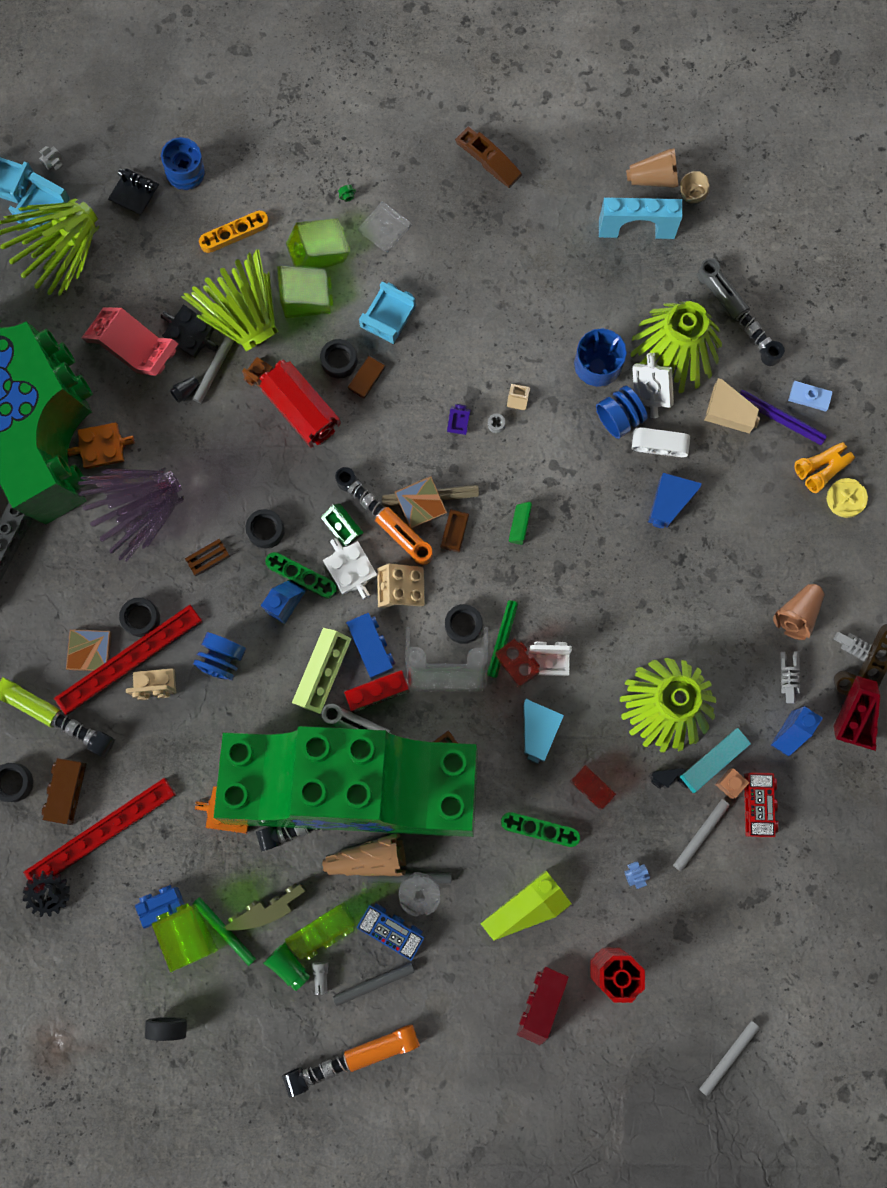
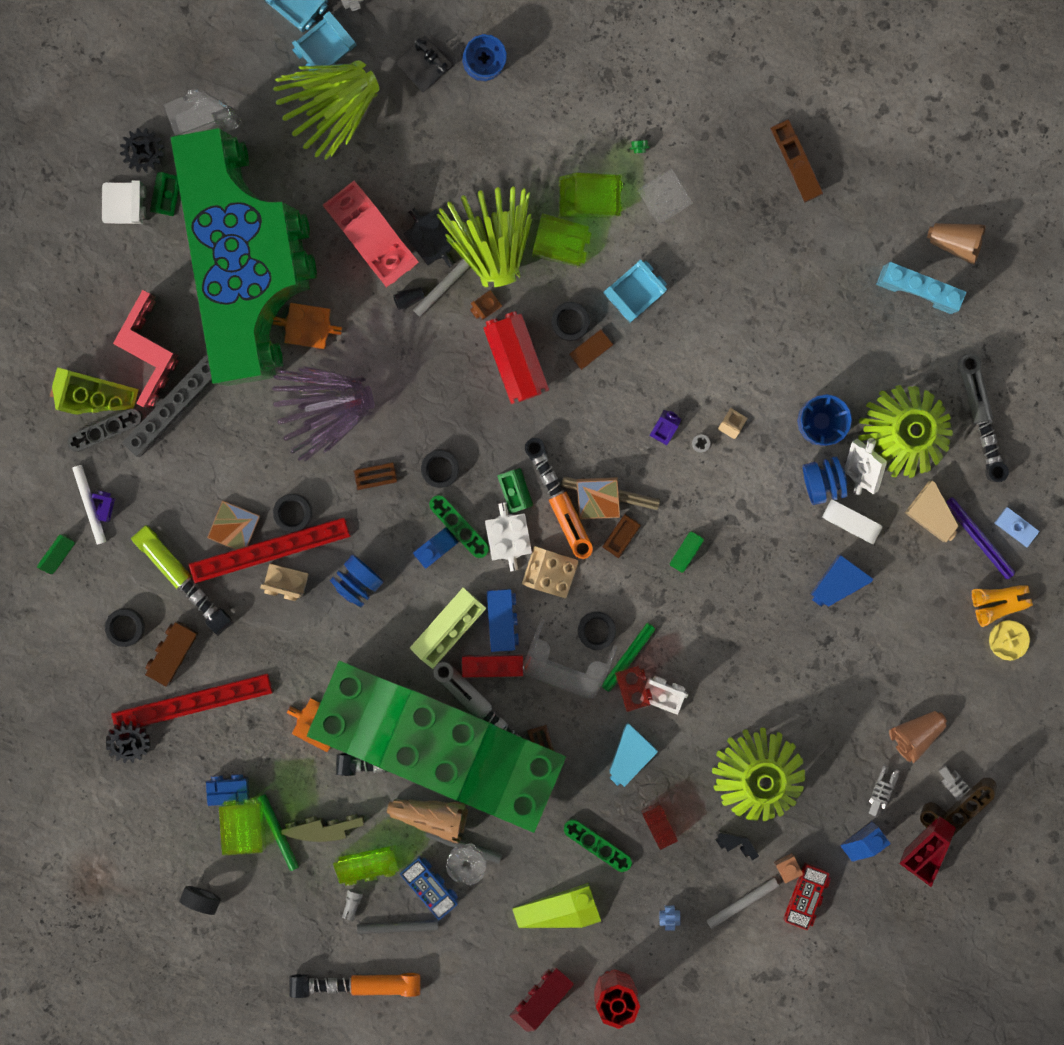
camera: 20 degrees right, 10 degrees up
(232, 228) = (511, 145): light orange beam -> none
(287, 967) = (325, 884): green plant -> none
(694, 187) = (990, 271): tan hair -> none
(715, 760) = (781, 842): teal tile -> none

